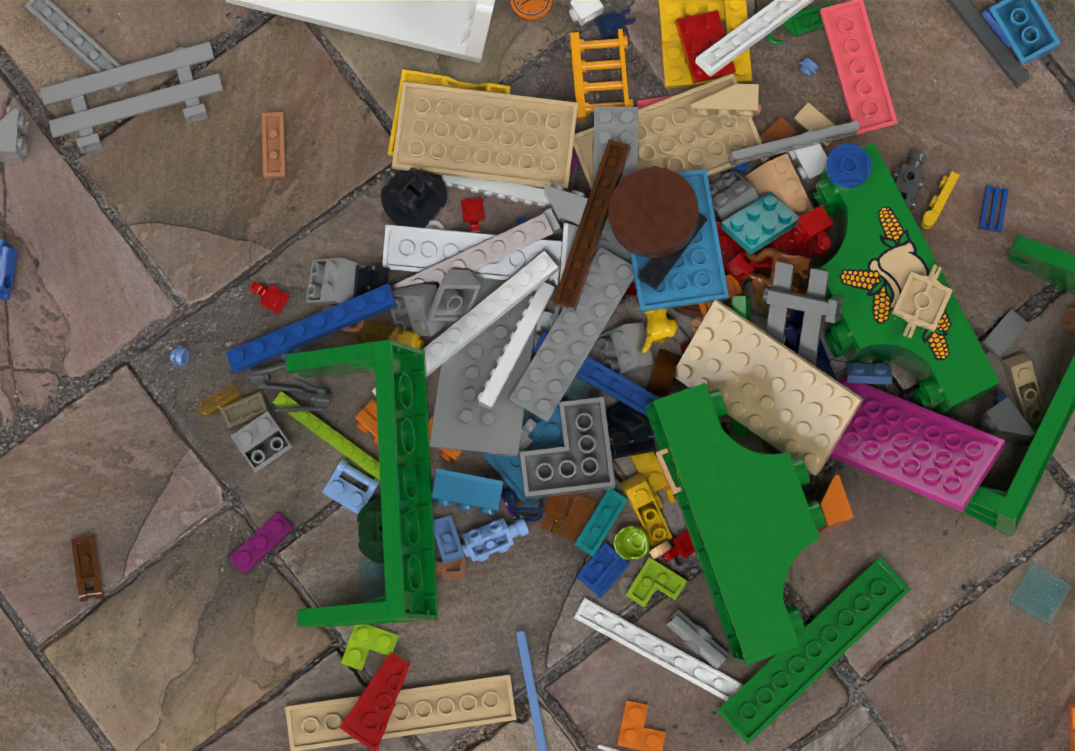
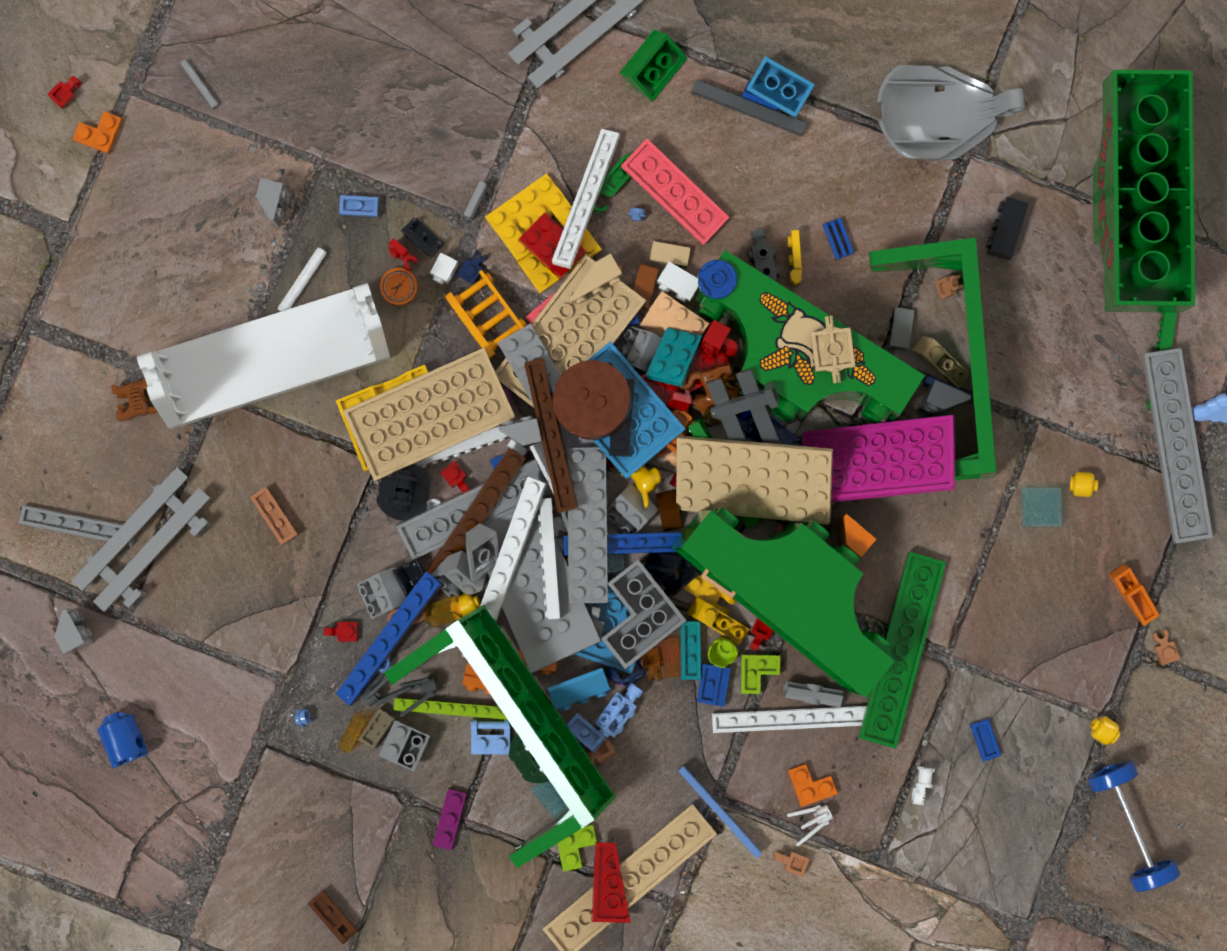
camera: 30 degrees left, 5 degrees up
(660, 550) = (746, 644): light nougat tile -> none
(793, 143) = (663, 281): light grey tile -> none
(868, 373) = (820, 419): medium blue plate -> none

